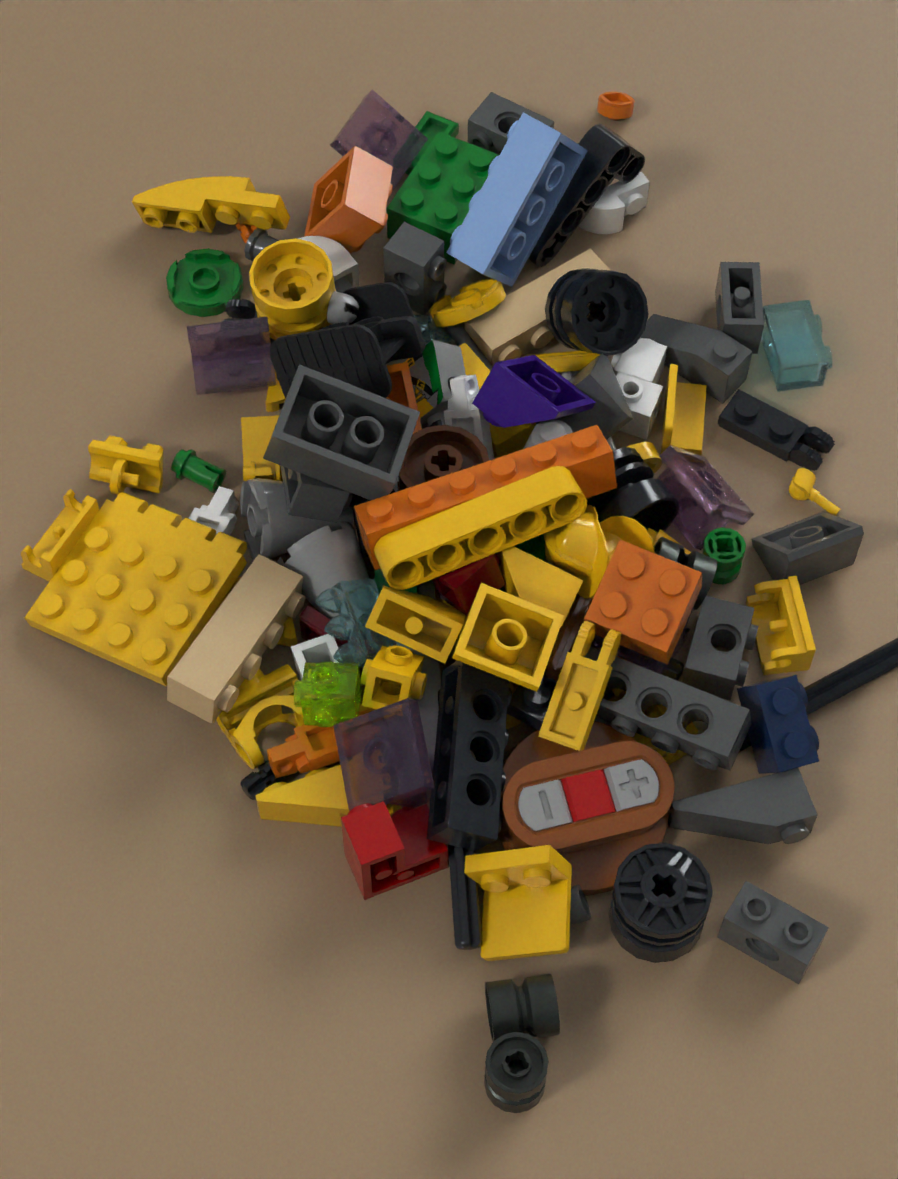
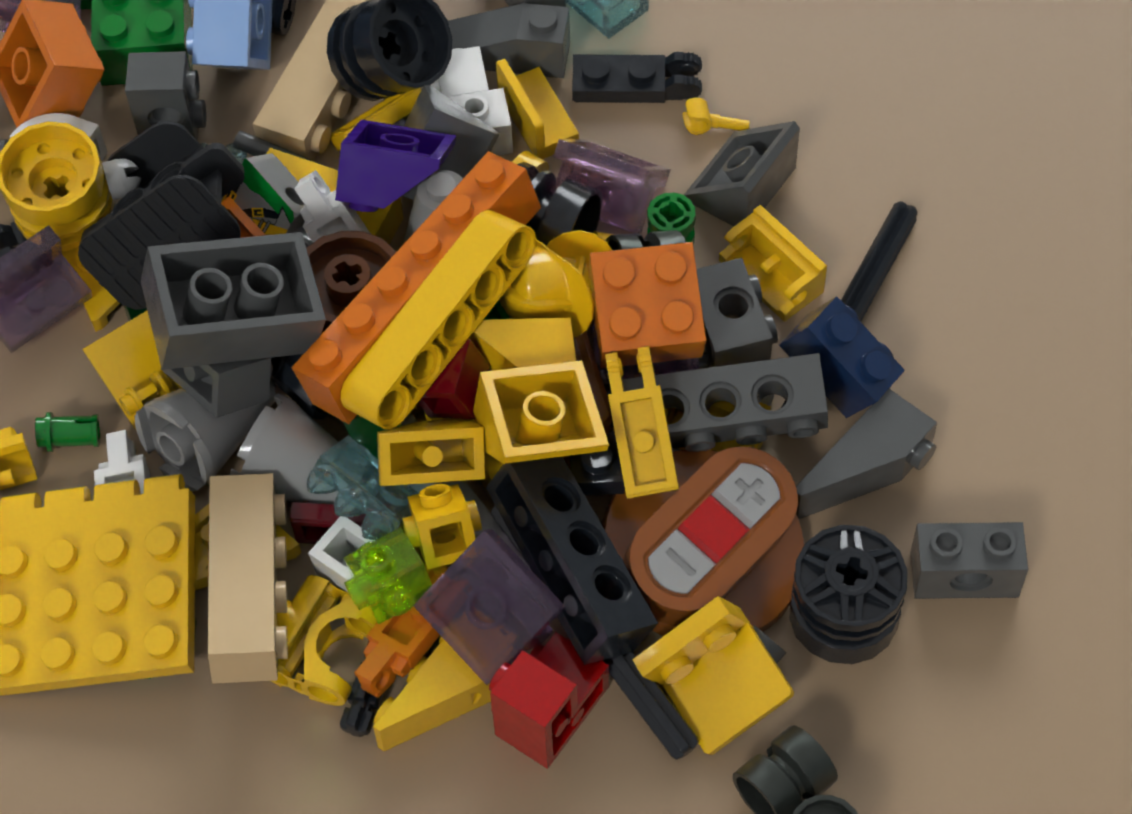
camera: 30 degrees left, 0 degrees up
(470, 303) = (244, 106): yellow tile -> none

